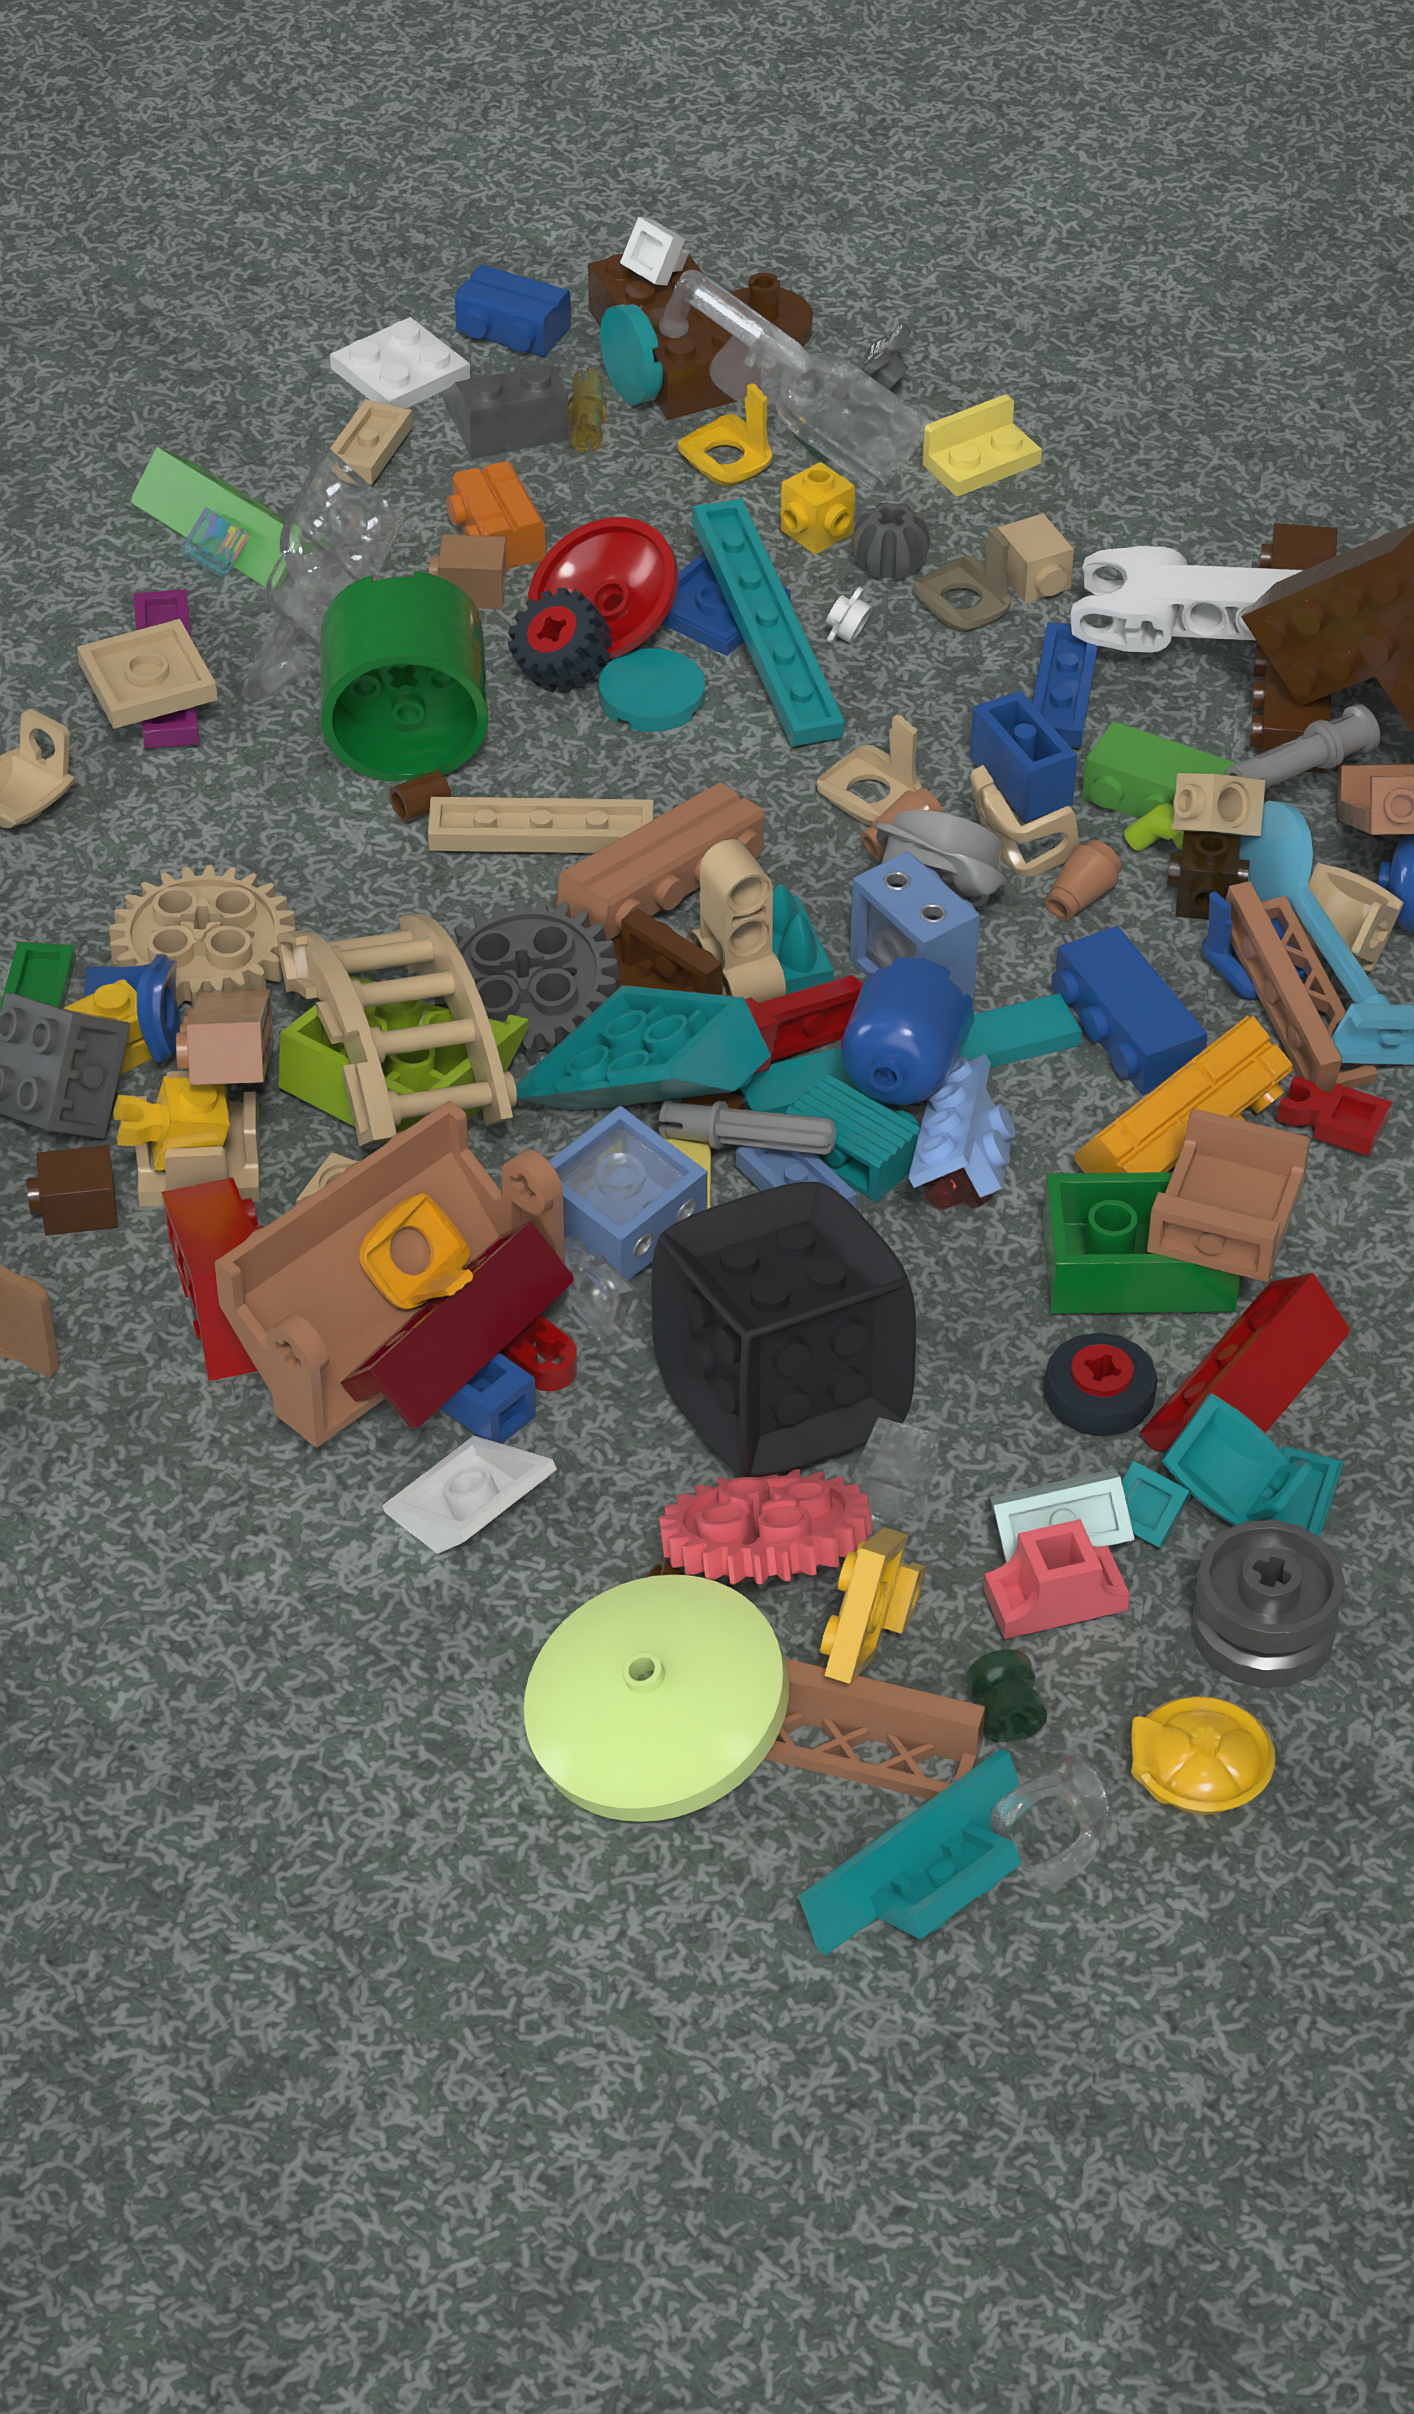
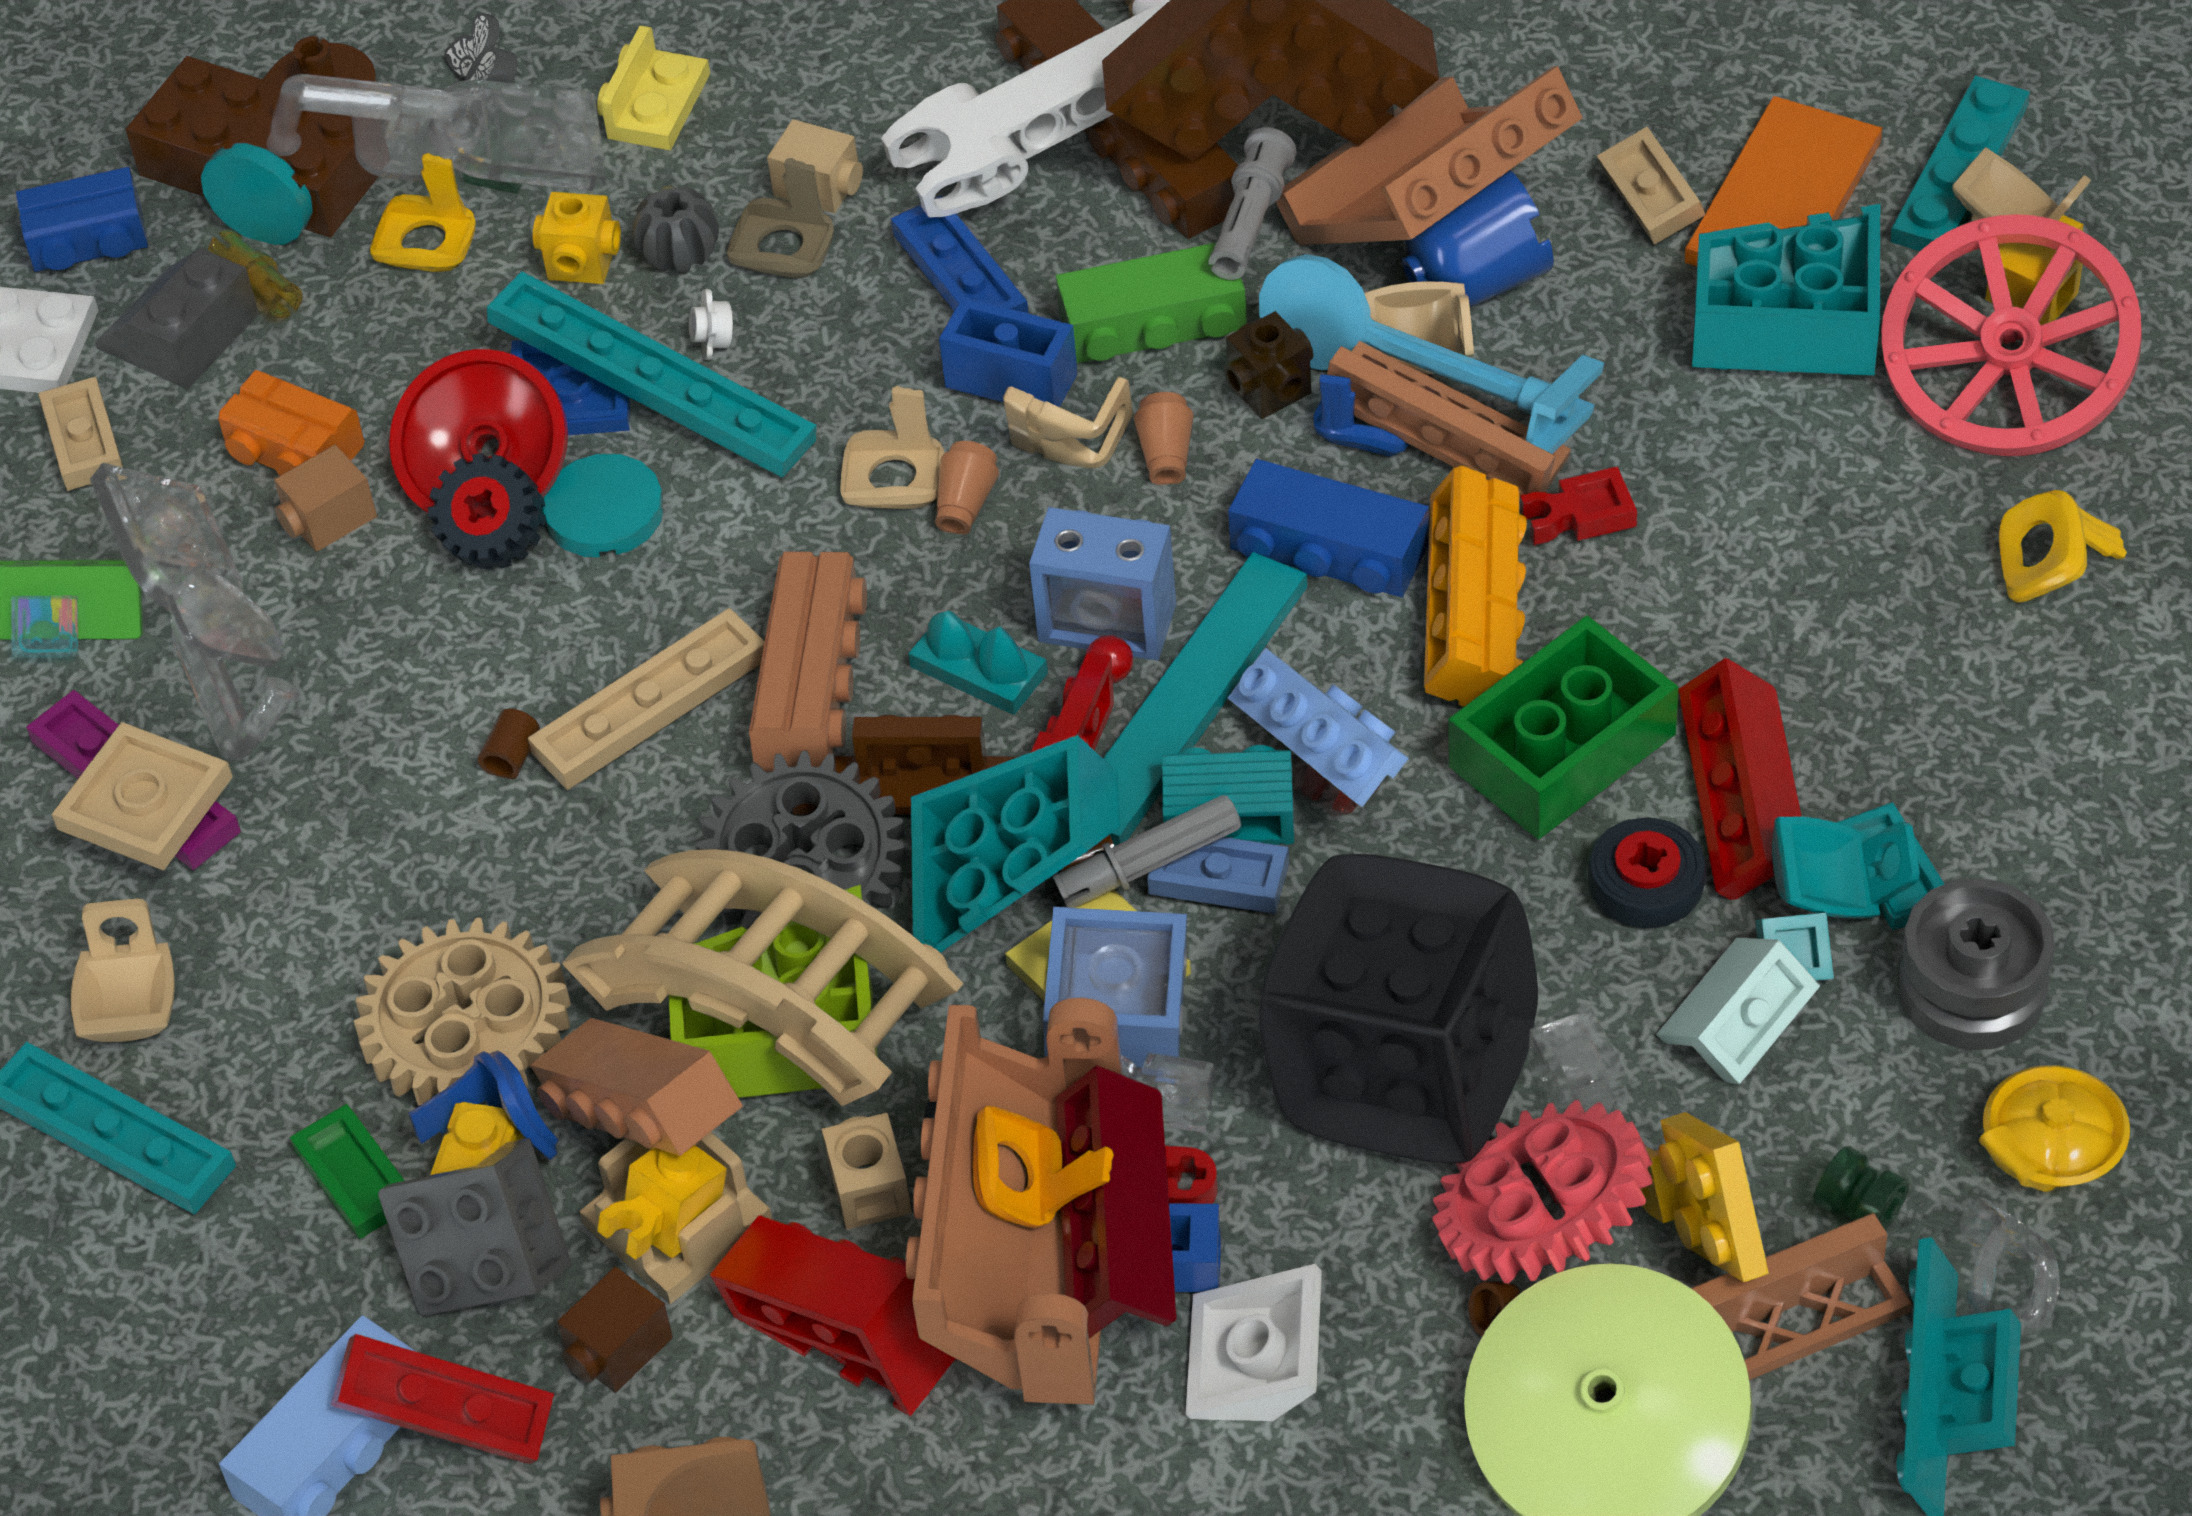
camera: 35 degrees left, 5 degrees up
(403, 677) = (408, 640): green brick -> none
(654, 251) = (198, 80): white tile -> none
(738, 922) = (956, 670): tan piece -> none
(906, 1031) = (1206, 673): blue cylinder -> none
(952, 846) = (1059, 479): light grey piece -> none
(1054, 1581) = (1798, 1071): coral brick -> none
(1153, 826) = (1187, 338): lime arm -> none
(1218, 804) = (1240, 294): tan brick -> none
(1230, 1195) = (1623, 637): nougat panel -> none

